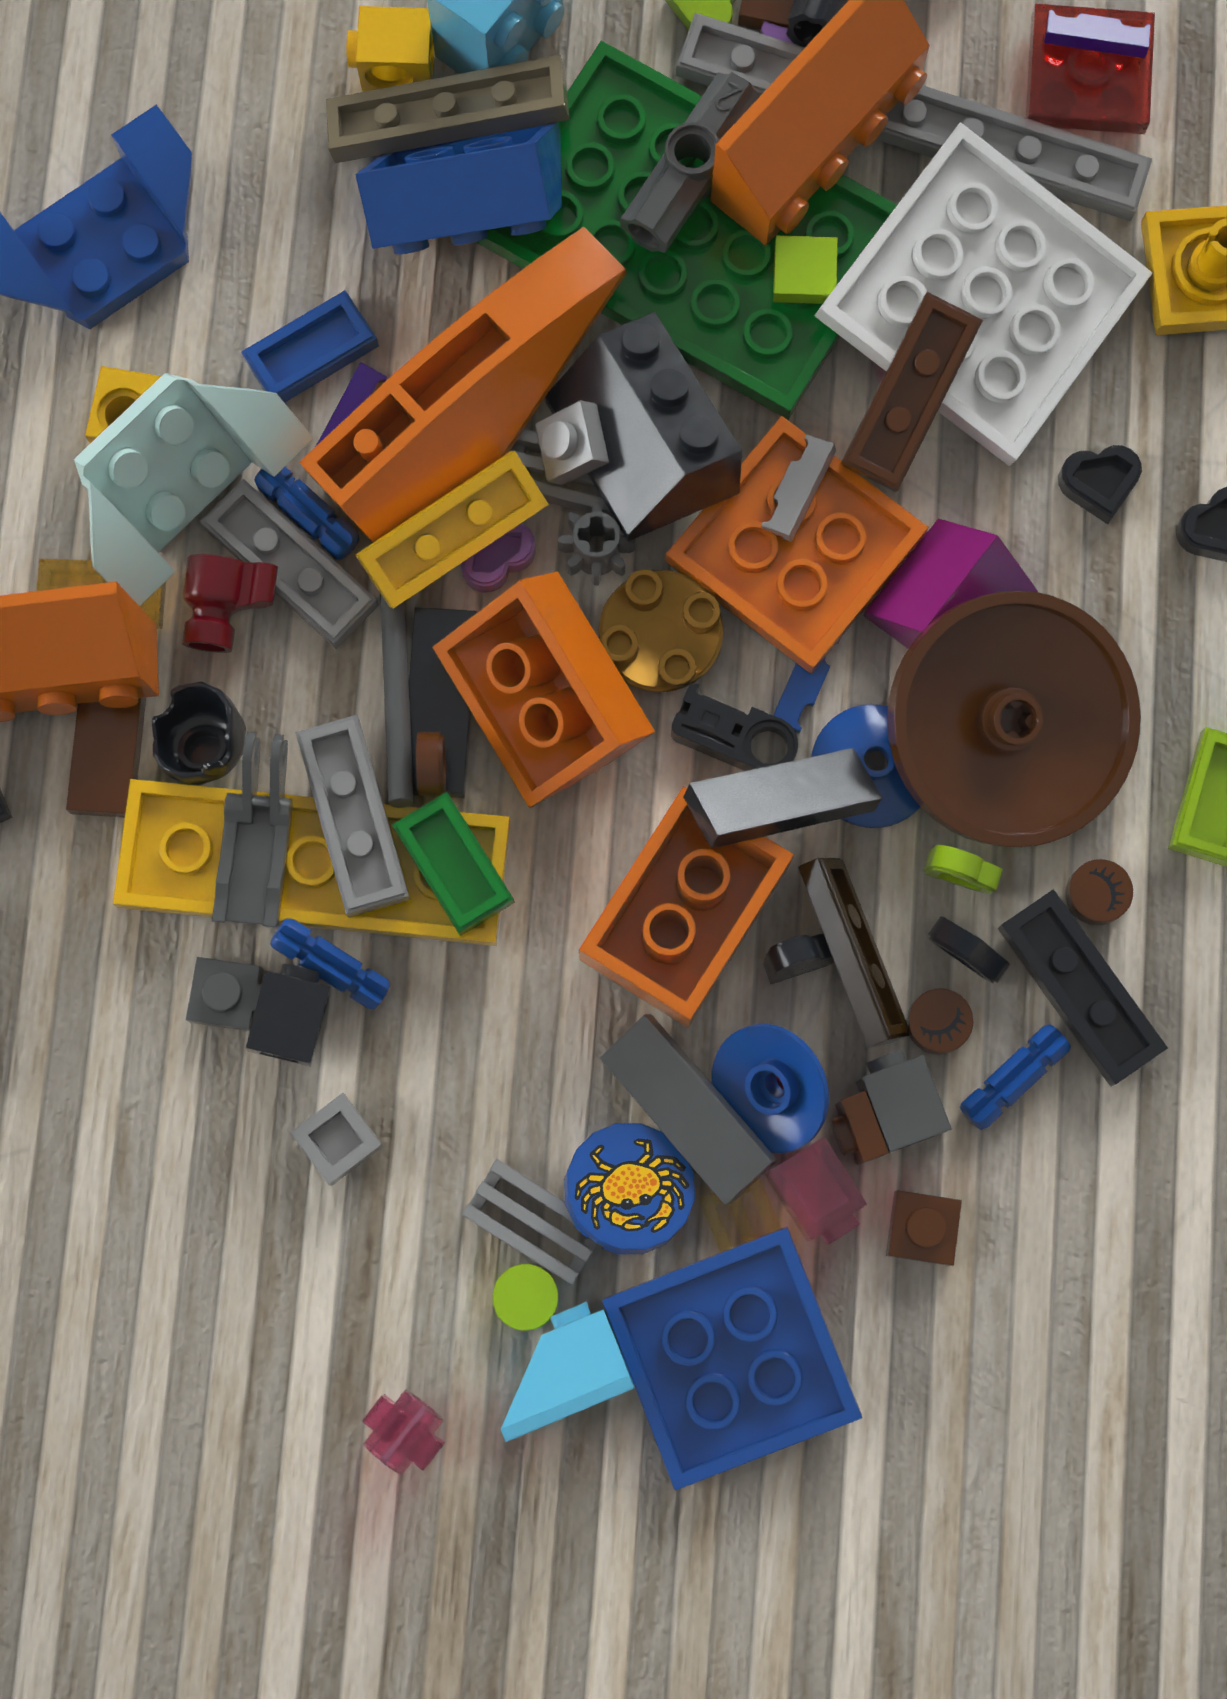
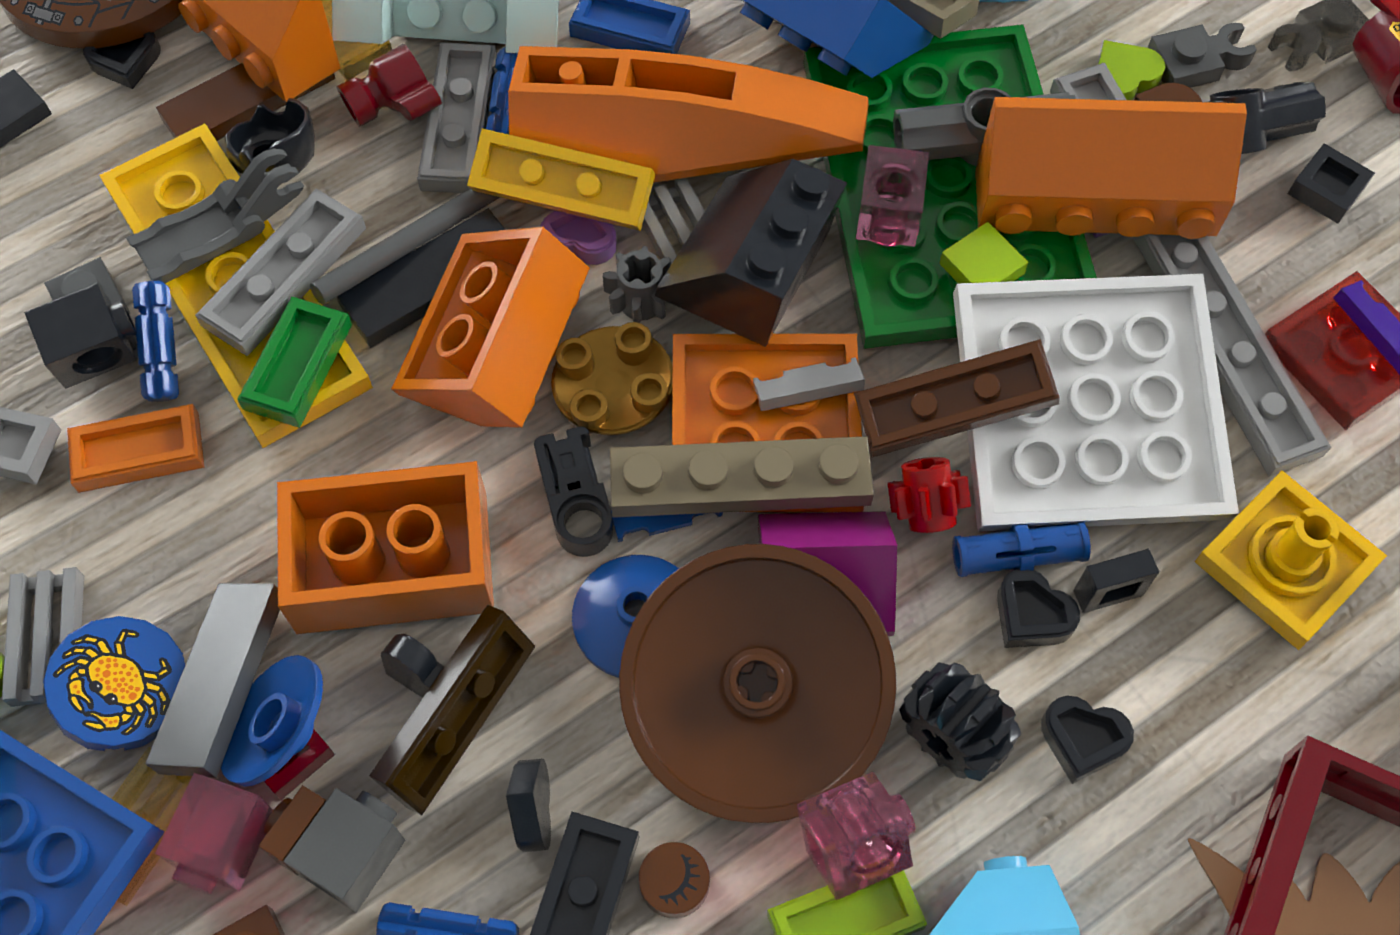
camera: 50 degrees right, 15 degrees down
(412, 1045) = (135, 448): none -> orange tile
(431, 763) = (362, 289): reddish brown tile -> none
(572, 442) = (698, 206): light grey plate -> none
(691, 264) = (896, 177): none -> clear pink brick
(782, 797) = (530, 543): tile -> none
(838, 602) = (740, 476): none -> dark tan plate
(940, 1021) = (451, 830): reddish brown tile -> none
(960, 476) = (929, 494): none -> red gear
(962, 869) = (597, 745): lime tile -> none
(1049, 449) = (1021, 548): none -> blue pin
(1132, 404) = (1115, 580): none -> black tile
(1154, 603) = (960, 721): none -> black gear
(1175, 741) = (857, 834): none -> clear pink brick

